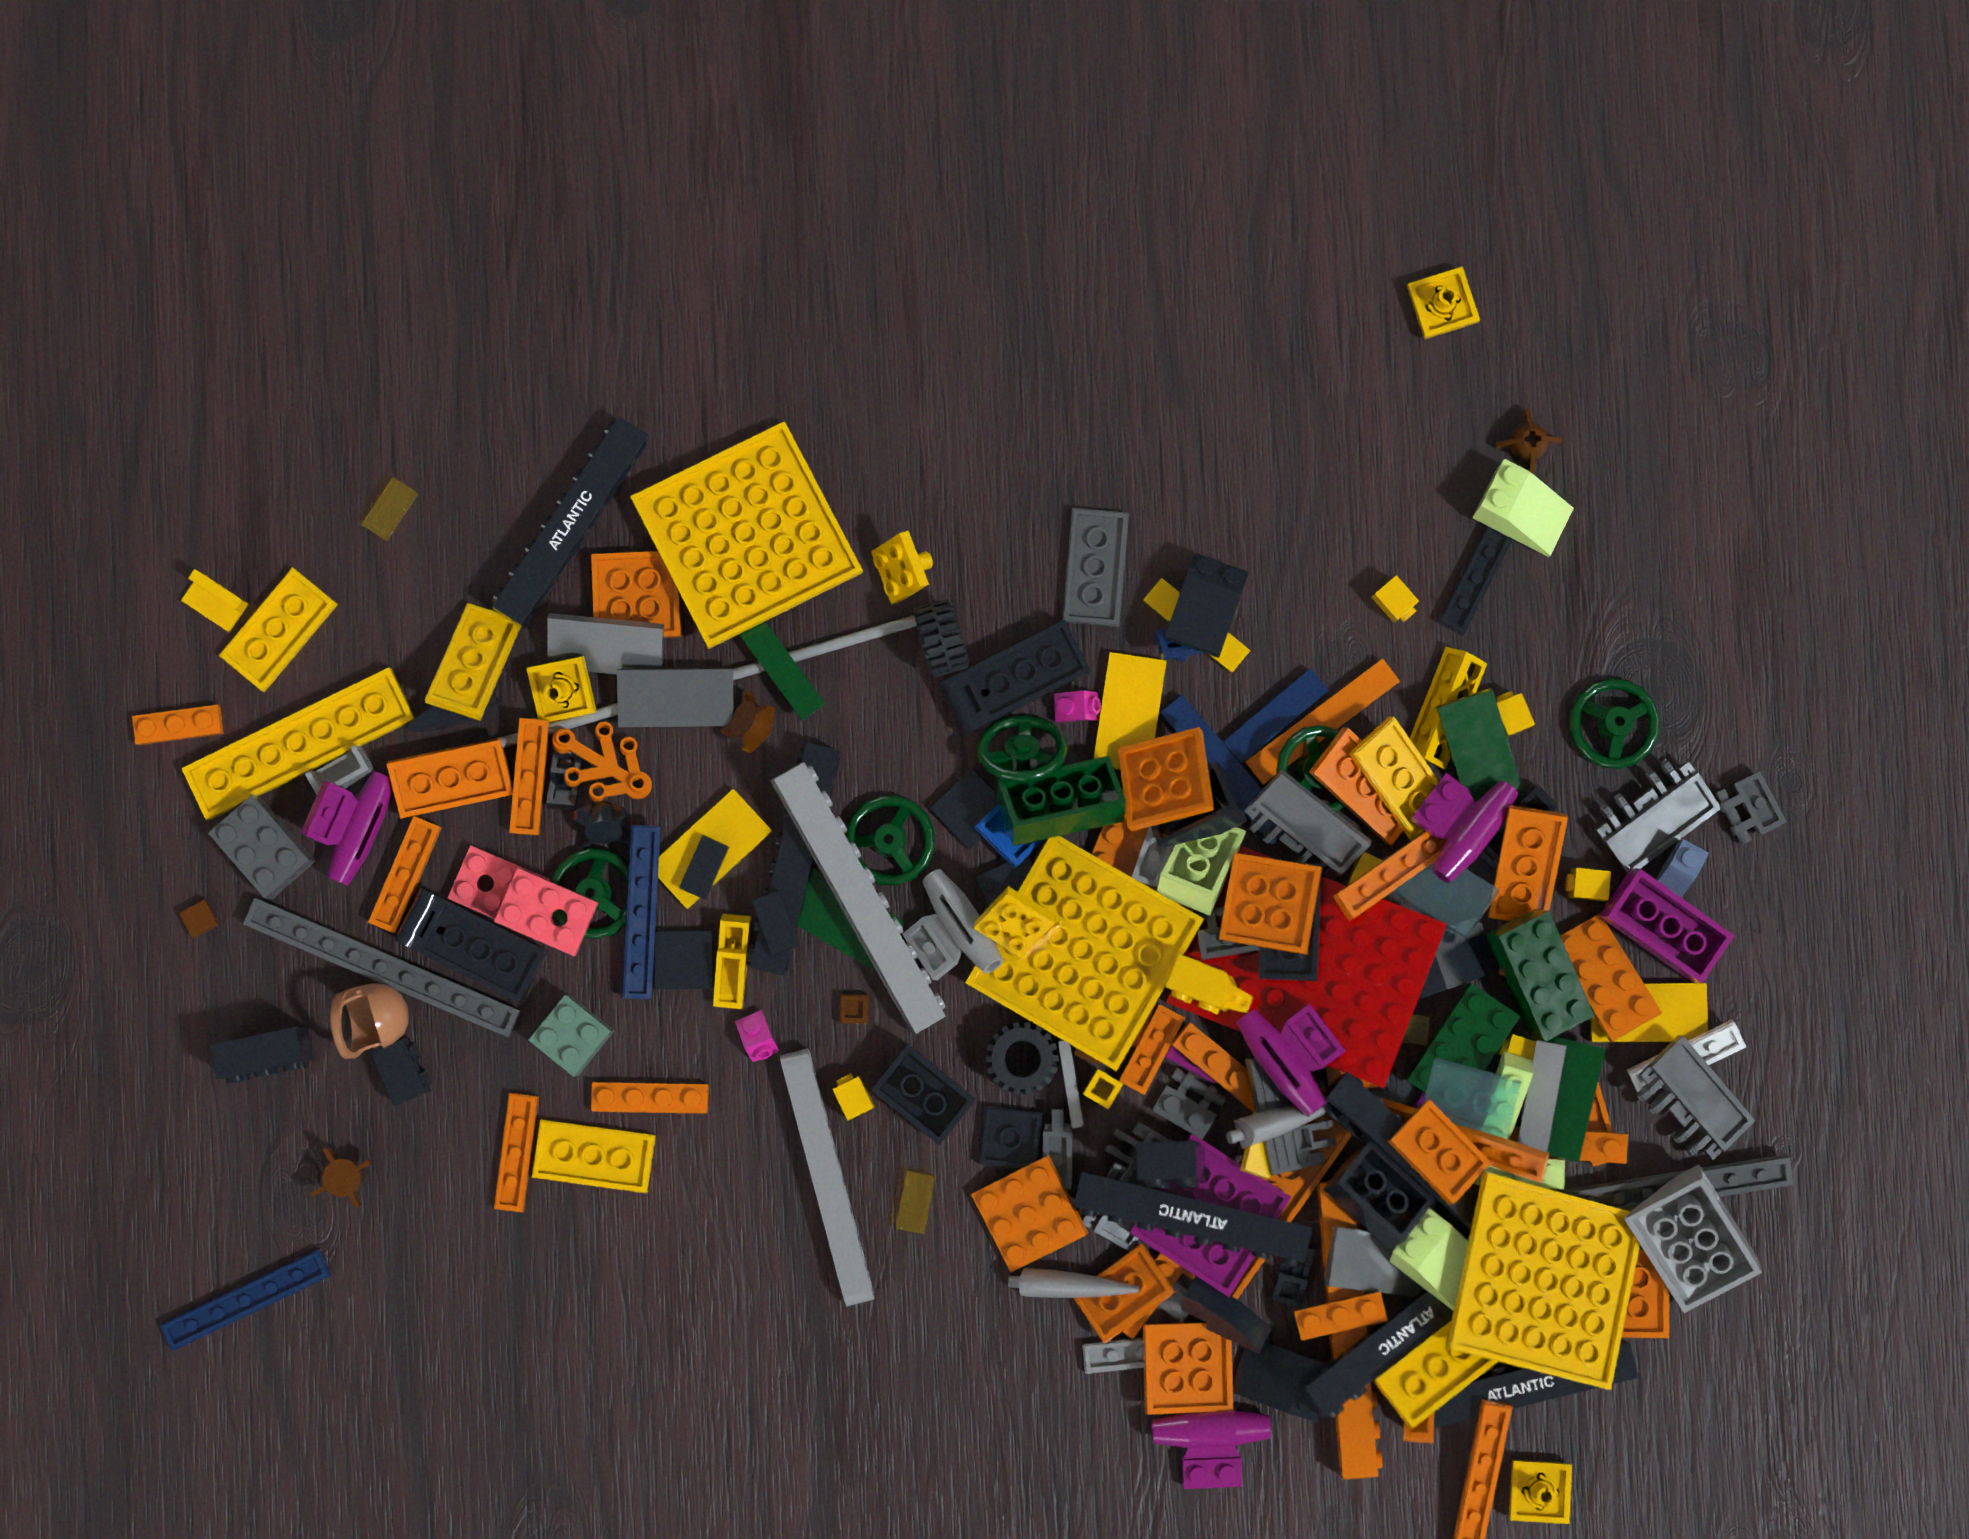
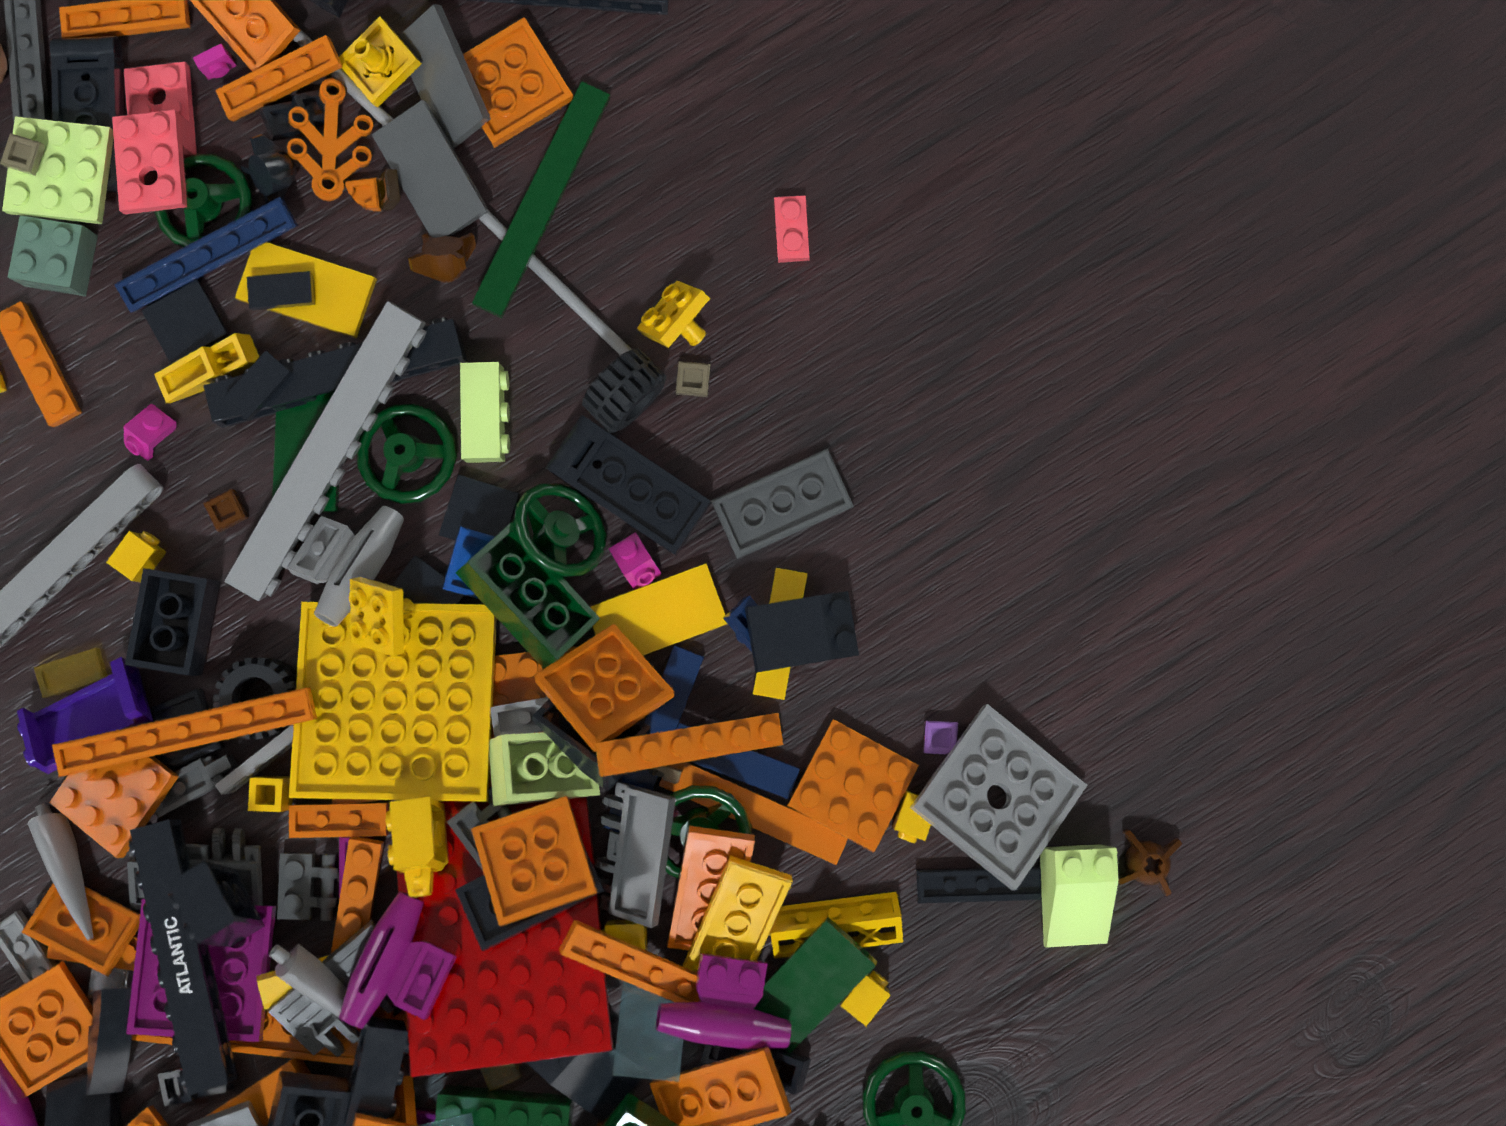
camera: 65 degrees right, 0 degrees up
(486, 821) = (215, 62): none -> dark pink plate
(486, 1007) = (22, 154): none -> dark tan tile
(509, 989) = (70, 174): none -> yellowish green plate
(659, 760) = (365, 193): none -> orange tile
(670, 738) = (388, 189): none -> dark brown tile
(746, 535) = (622, 150): yellow plate -> none
(881, 438) = (791, 229): none -> coral plate
(892, 759) = (484, 412): none -> yellowish green brick
(957, 582) = (693, 379): none -> dark tan tile
(962, 1204) = (96, 709): none -> dark purple panel
(1019, 1125) = (184, 731): none -> orange tile
(1246, 737) = (688, 744): none -> orange plate
(1255, 772) = (668, 773): none -> dark tan tile
(1346, 546) = (939, 736): none -> medium lavender tile
(1346, 634) = (853, 785): none -> orange plate
(1420, 494) = (1036, 791): none -> light grey piece
(1451, 287) = (1259, 699): yellow plate -> none

